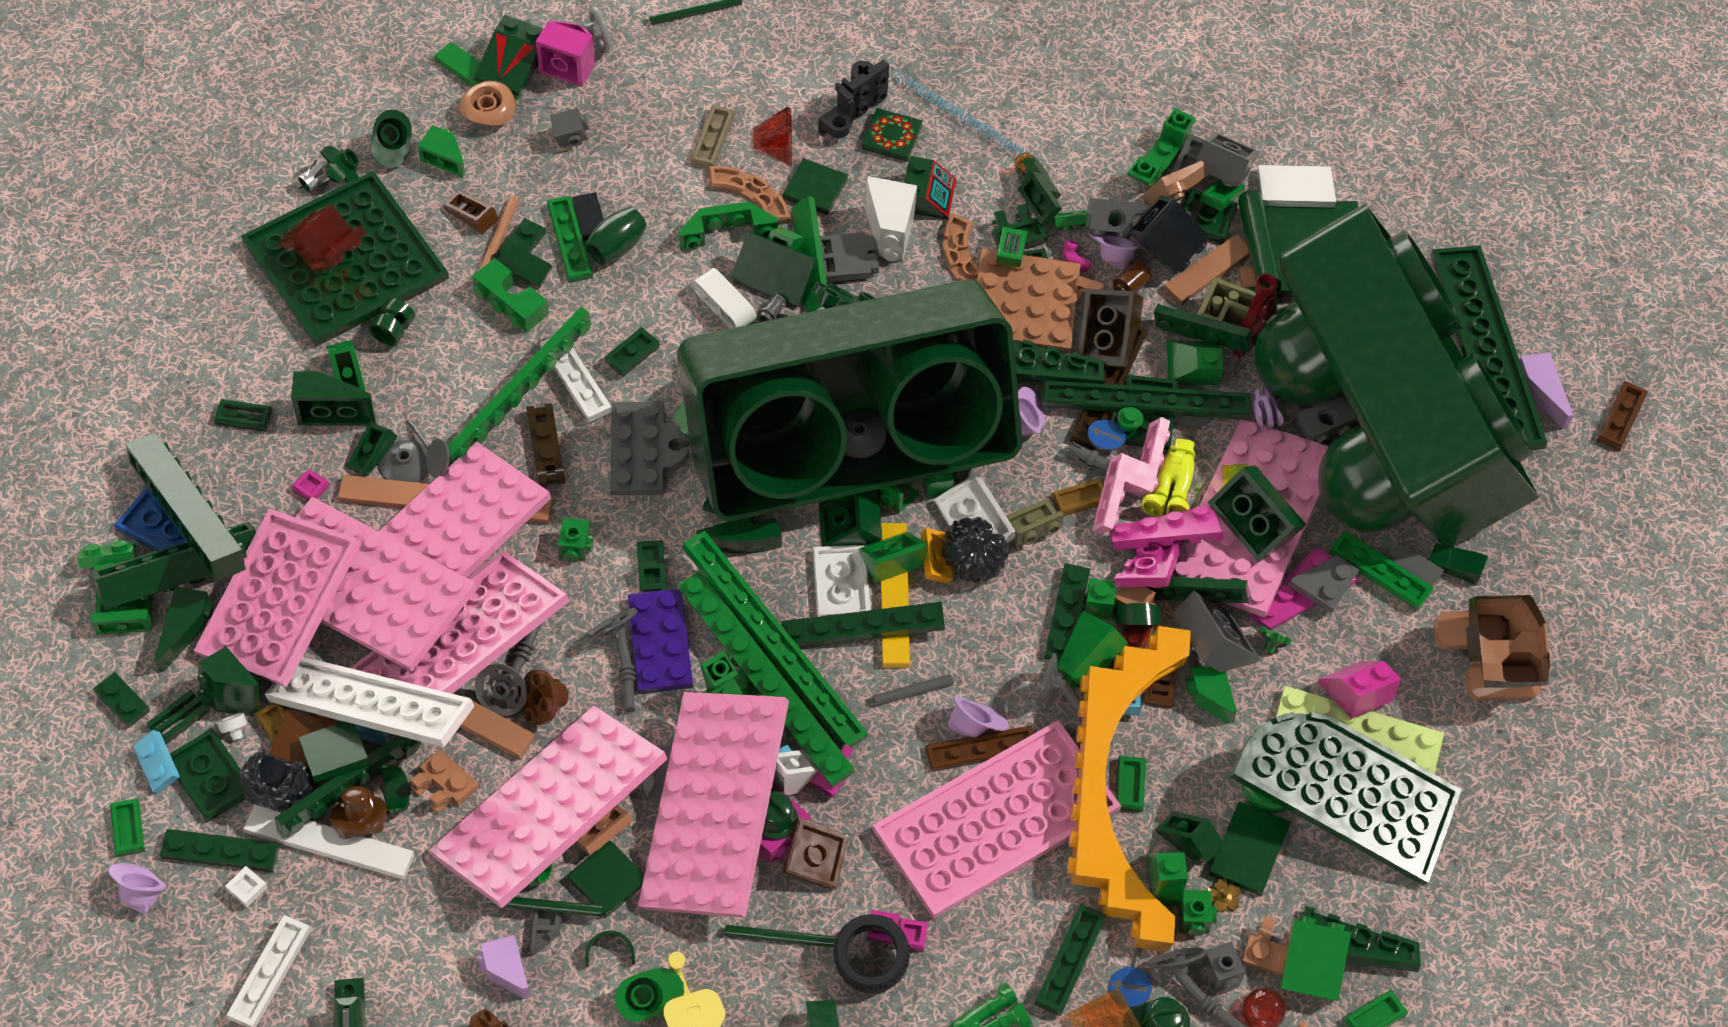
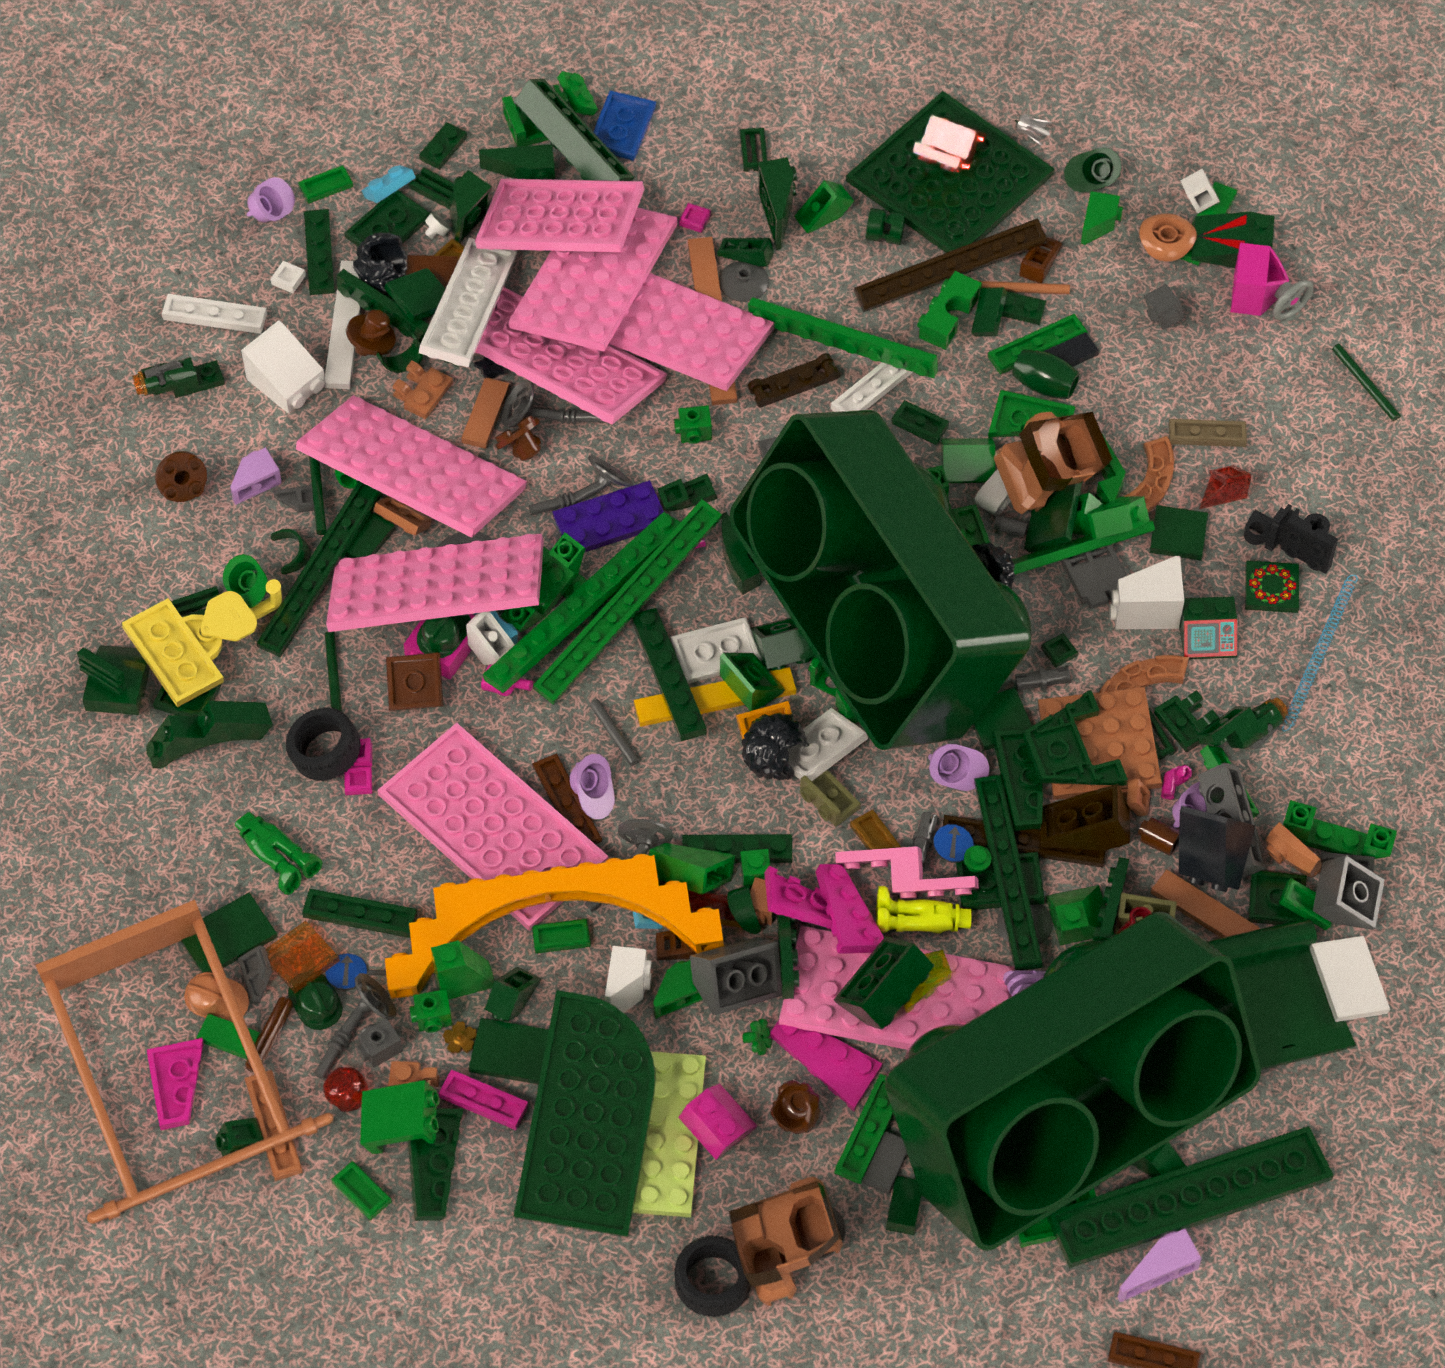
camera: 80 degrees right, 0 degrees up
(186, 507) = (625, 122): brick -> none
(341, 164) = (1046, 140): dark green plate -> none
(379, 909) = (282, 368): none -> white slope
(437, 453) = (761, 288): dark grey piece -> none
(447, 65) = (1199, 191): none -> white brick
(458, 282) = (943, 266): none -> dark brown tile
(644, 920) = (319, 569): none -> dark green tile
(652, 265) = (1016, 409): none -> green wing
(683, 318) = (968, 459): none -> green slope
(730, 245) = (1045, 463): none -> nougat piece
(799, 215) = (1118, 516): none -> green slope
(832, 295) = (1044, 601): dark green plant -> none
(1011, 247) = (1151, 710): green tile -> none
(1038, 325) = (1060, 752): none -> dark green wing
(1206, 731) = (627, 977): none -> white slope
(1298, 886) = (483, 1099): none -> dark pink plate
(1325, 582) = (835, 1073): dark grey wing -> none
(1356, 619) = (796, 1107): none -> reddish brown hair
(1502, 747) = (704, 1303): none -> black tyre

